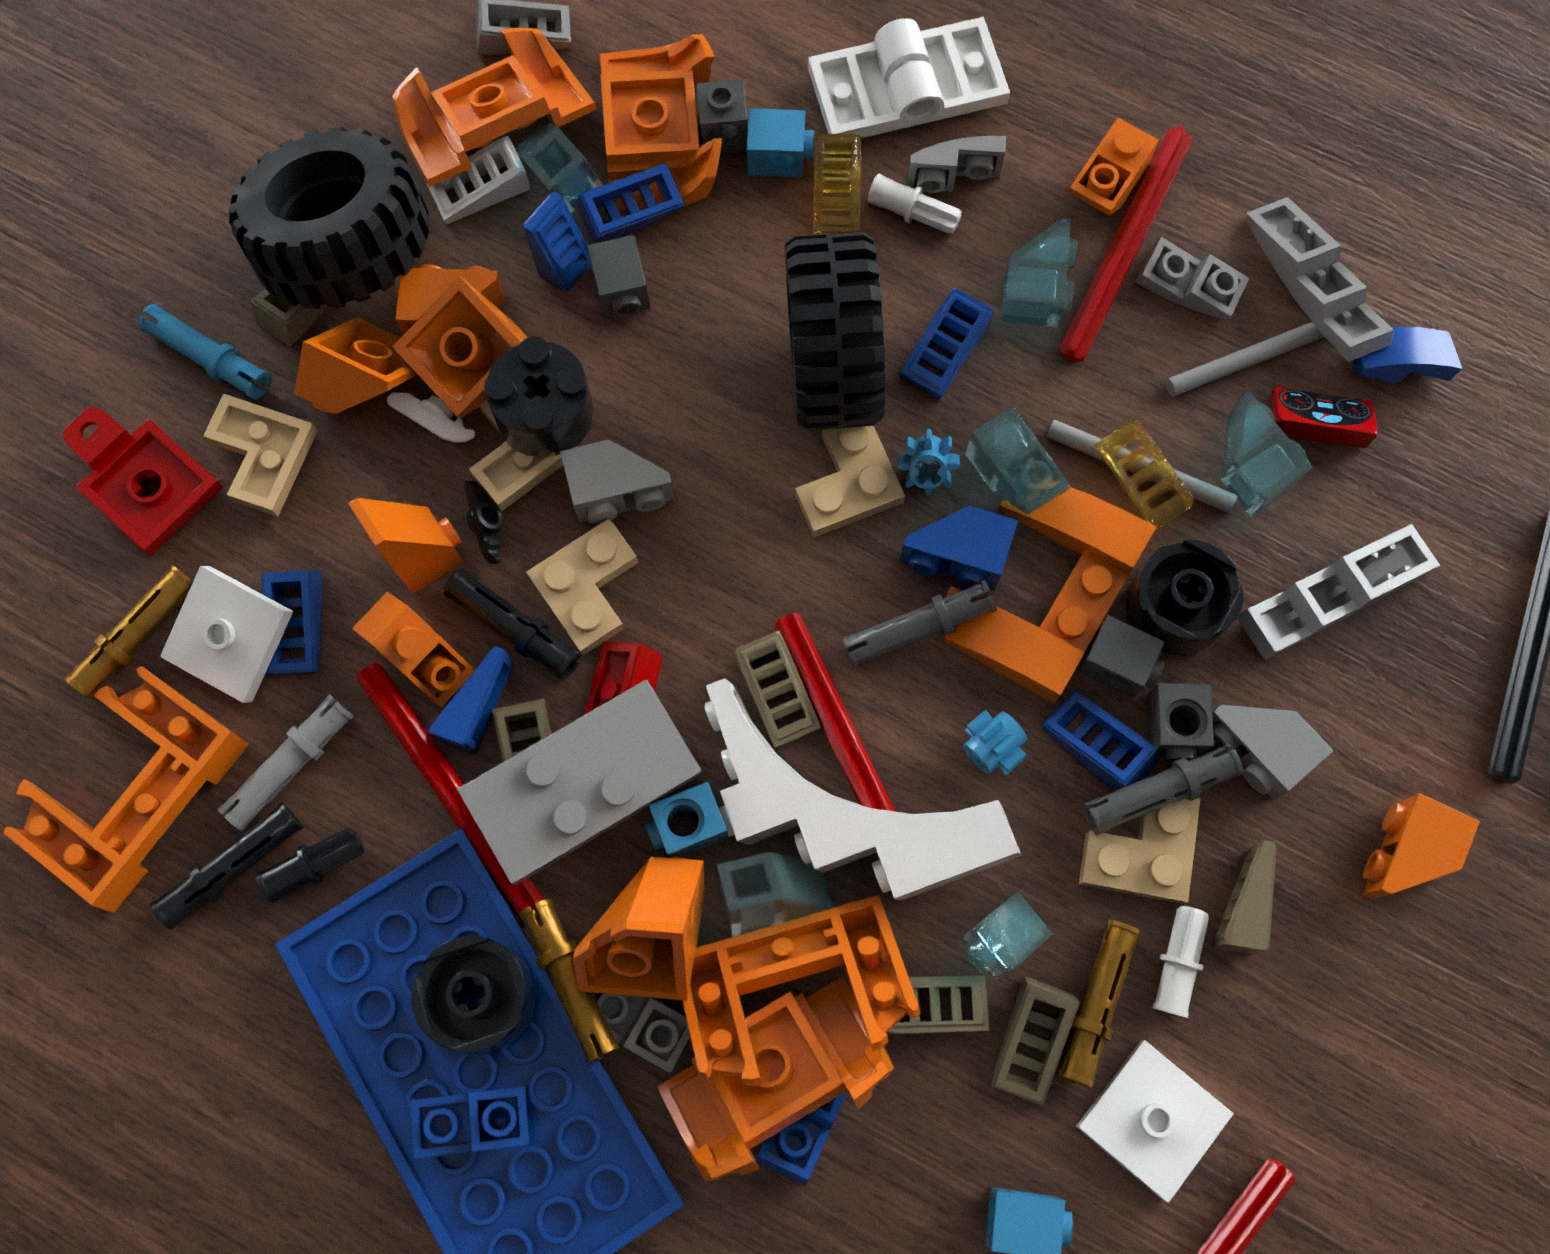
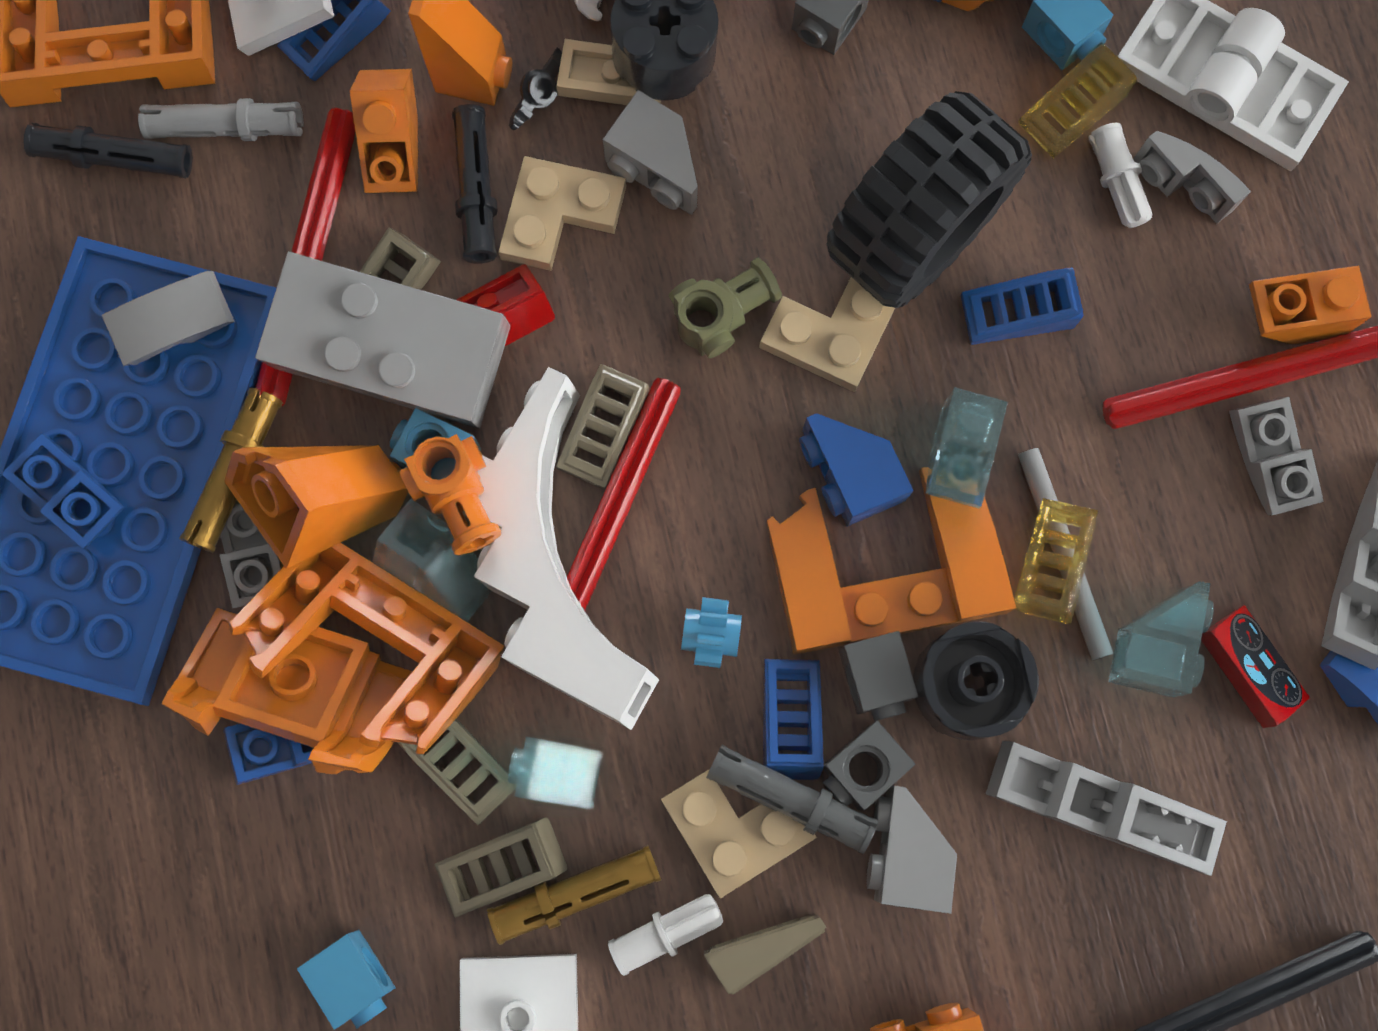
camera: 45 degrees right, 5 degrees up
(309, 864) = (160, 206): black axle -> none
(410, 926) = (168, 318): none -> light grey slope
(448, 979) = (126, 390): black brick -> none
(470, 710) = (369, 213): blue slope -> none
(745, 828) = (454, 493): none -> orange connector
(765, 531) = (726, 302): none -> olive connector
(920, 623) = (776, 498): dark grey pin -> none
(928, 449) = (901, 378): dark azure gear -> none
(1037, 278) = (1149, 326): clear light blue slope -> none
(1242, 359) = (1244, 558): light grey bar -> none

